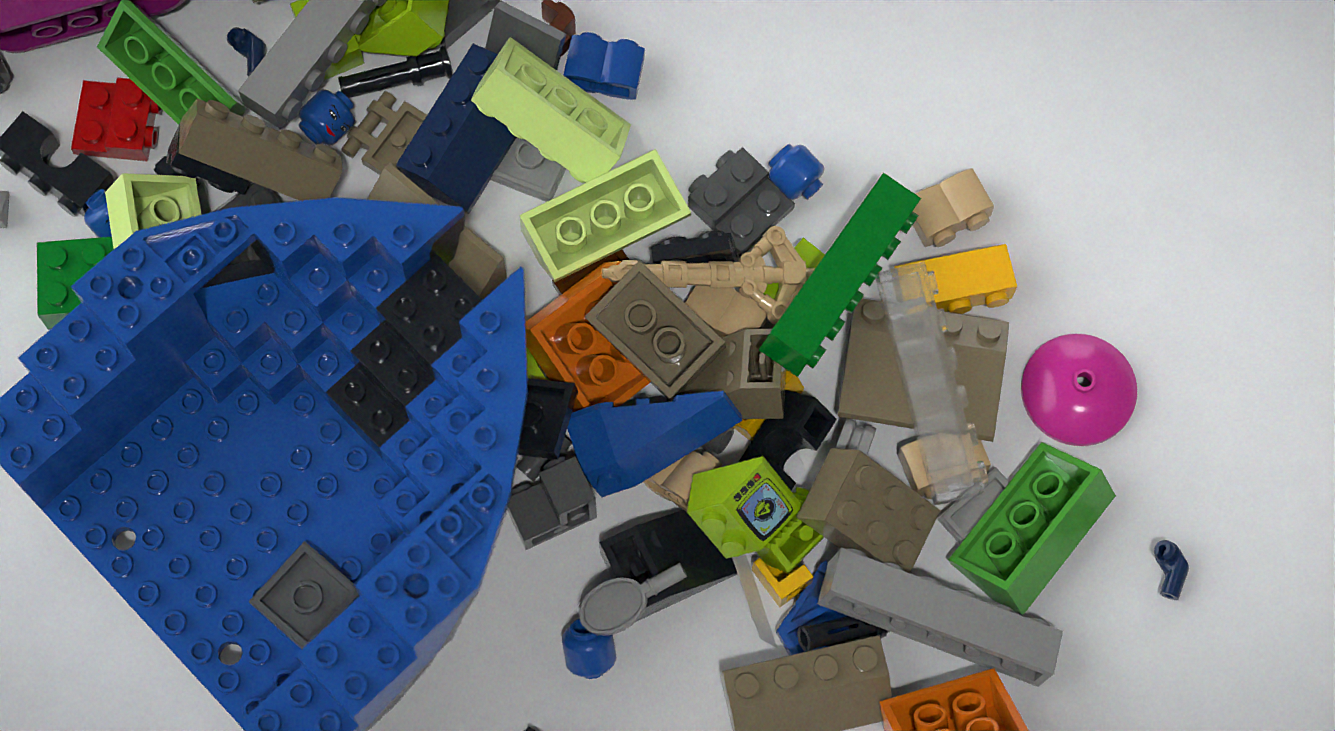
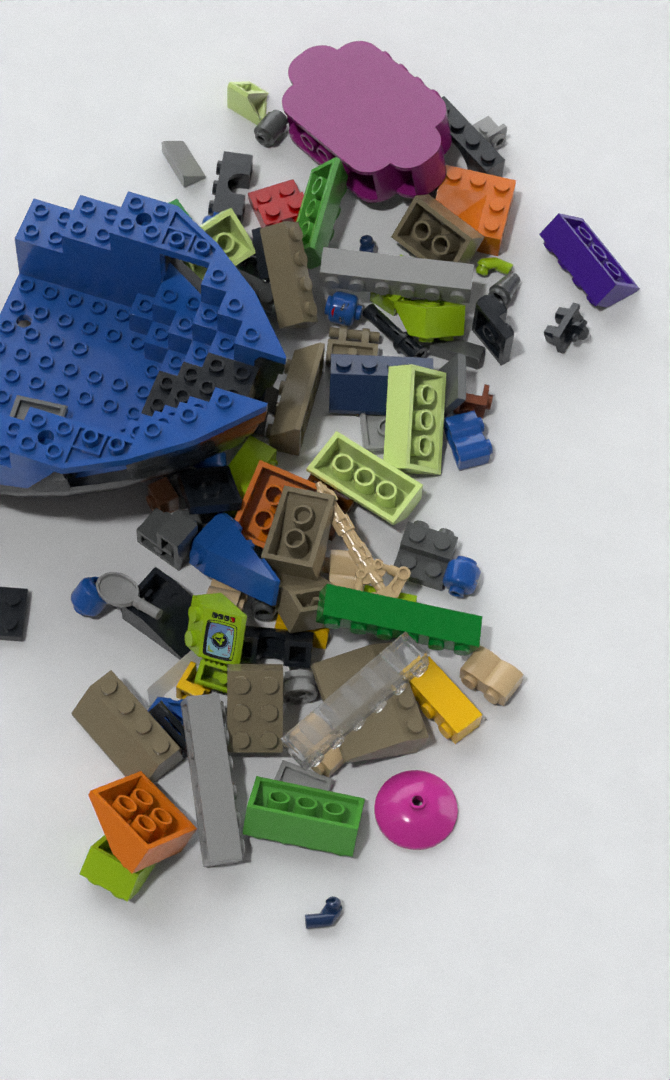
camera: 60 degrees right, 10 degrees down
(709, 246) = (371, 536): black plate -> none

